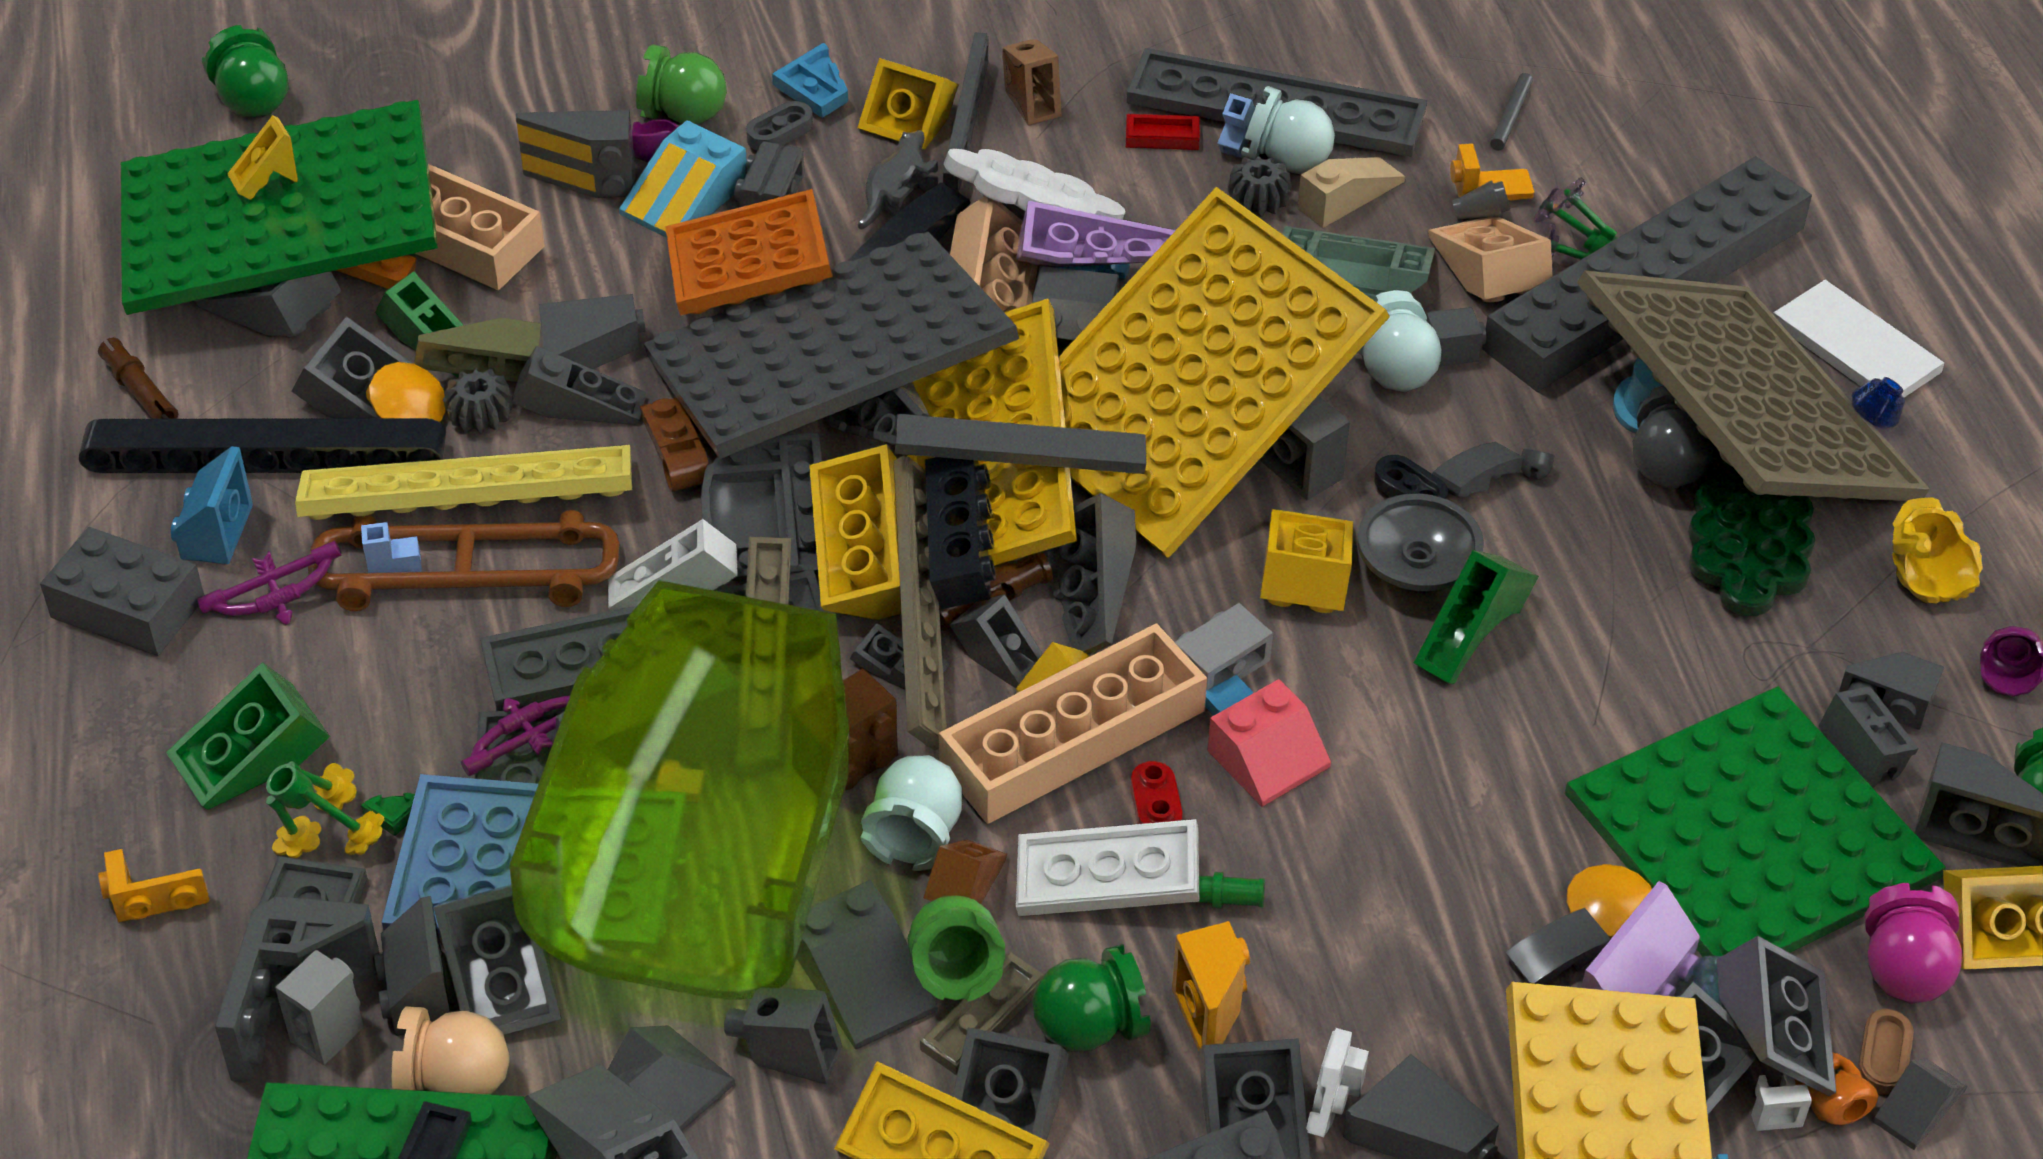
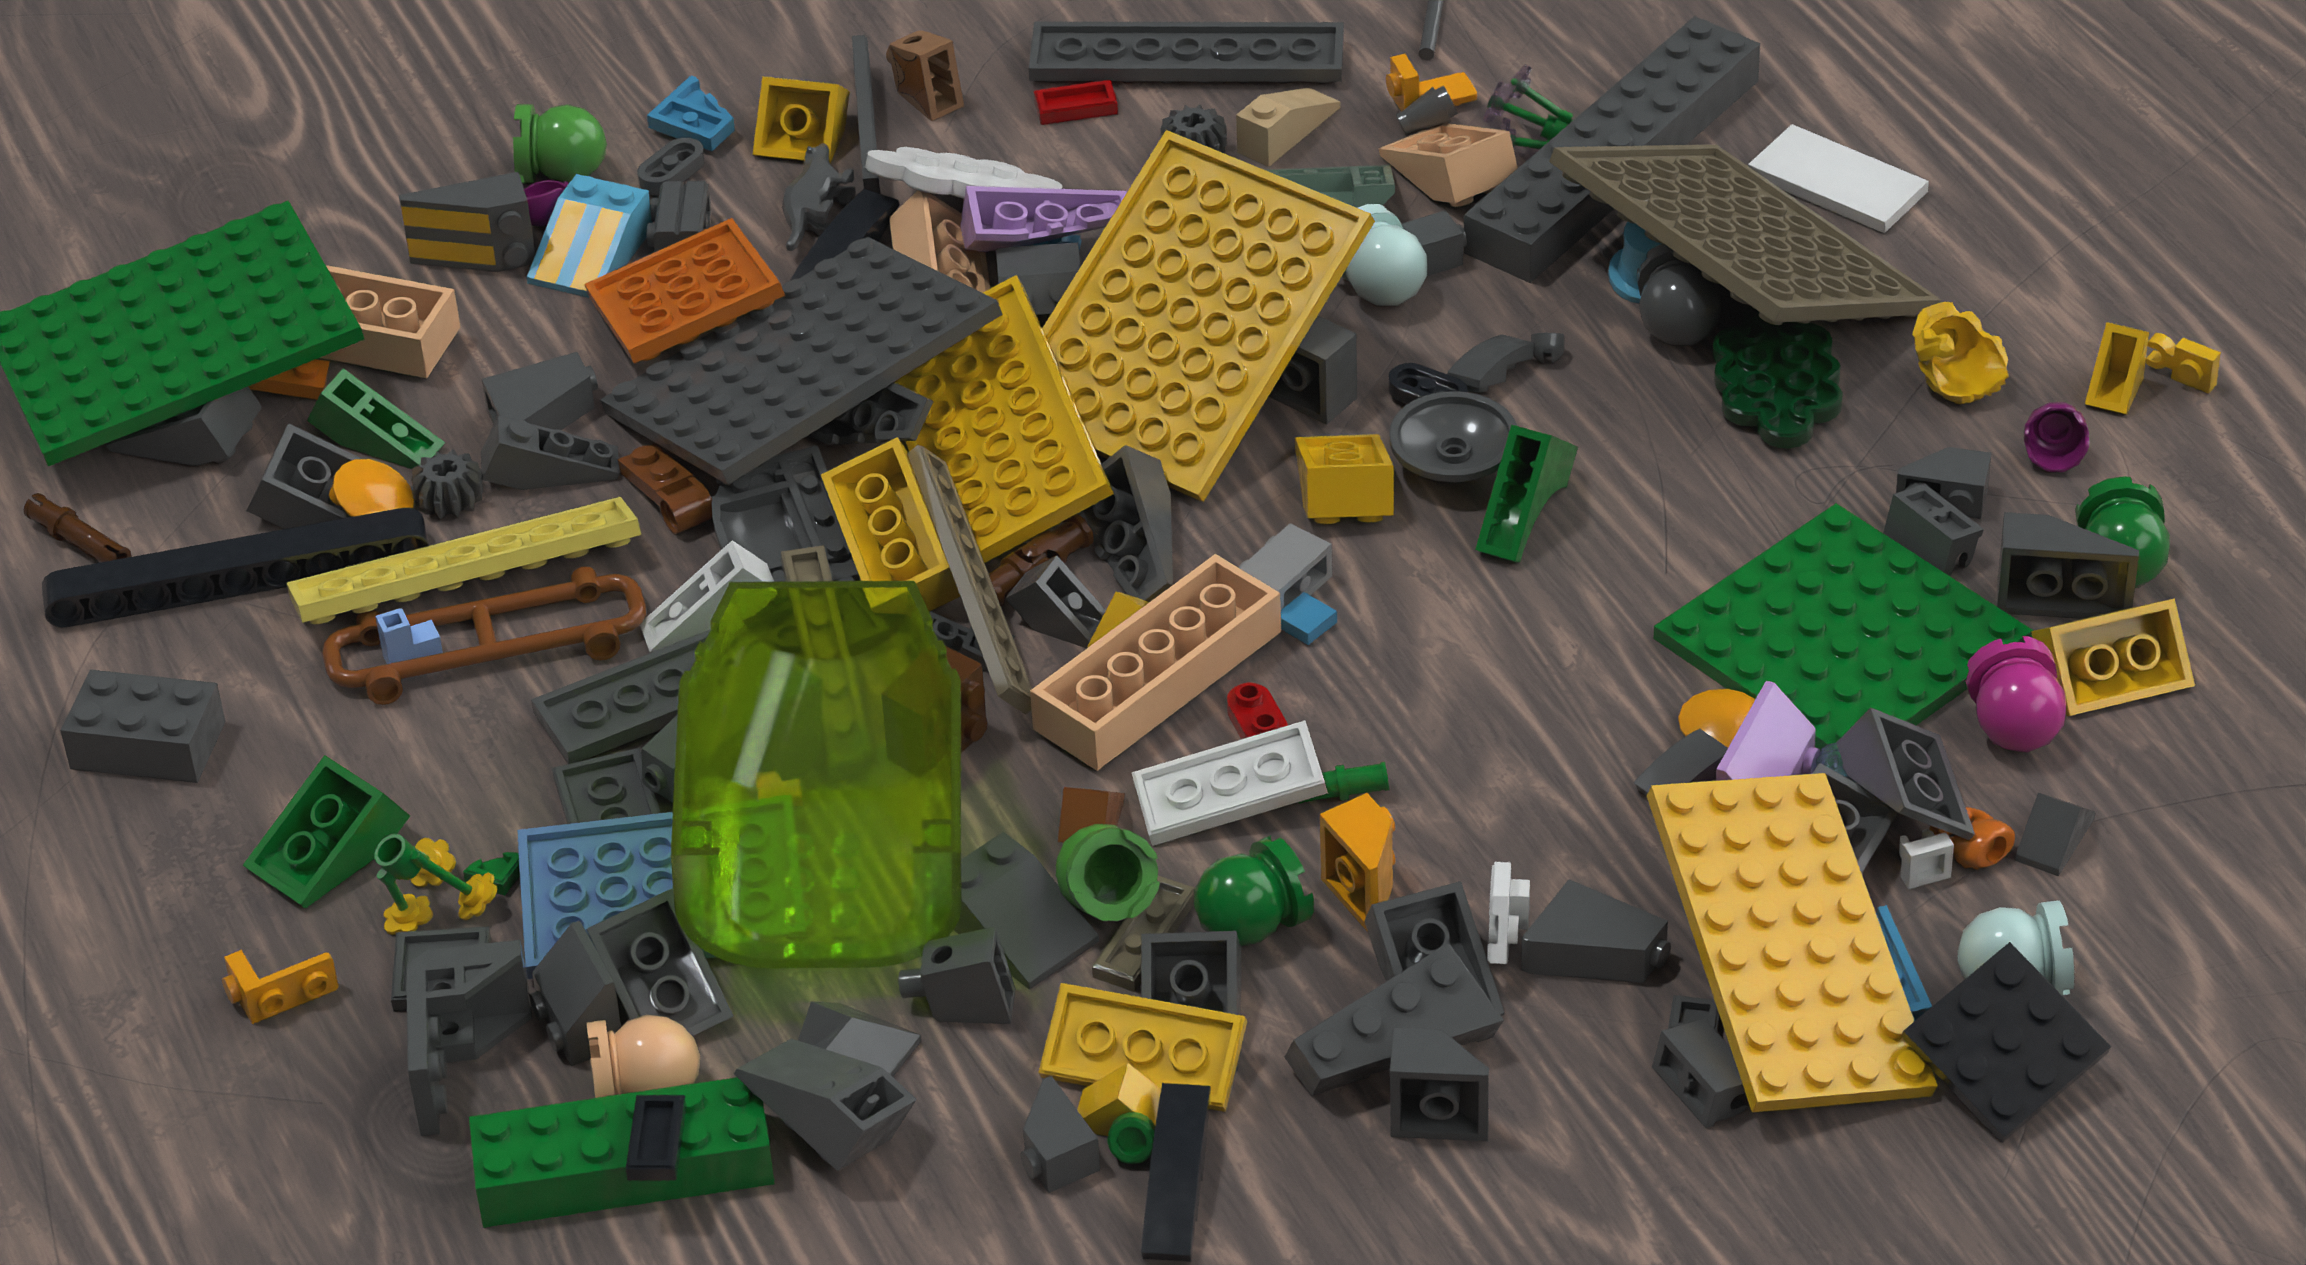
camera: 10 degrees left, 5 degrees down
(214, 510) = (209, 631): dark azure slope -> none
(246, 71) = (80, 210): green tile -> none
(267, 153) = (156, 274): yellow slope -> none
(268, 574) = (289, 682): magenta piece -> none
(320, 1006) = (495, 1045): light grey brick -> none
(484, 345) = (439, 427): olive slope -> none
(519, 718) = (622, 777): magenta piece -> none
(912, 811) = (1024, 769): light aqua tile -> none
(959, 531) = (990, 504): black brick -> none
(1020, 444) = (1033, 412): dark grey tile -> none
(1237, 118) = (1156, 77): light blue piece -> none
(1268, 743) = (1353, 645): coral slope -> none
(1290, 132) = (1214, 75): light aqua tile -> none
(1879, 402) = (1873, 227): clear blue cone -> none
(1885, 1049) = (2012, 794): medium nougat tile -> none

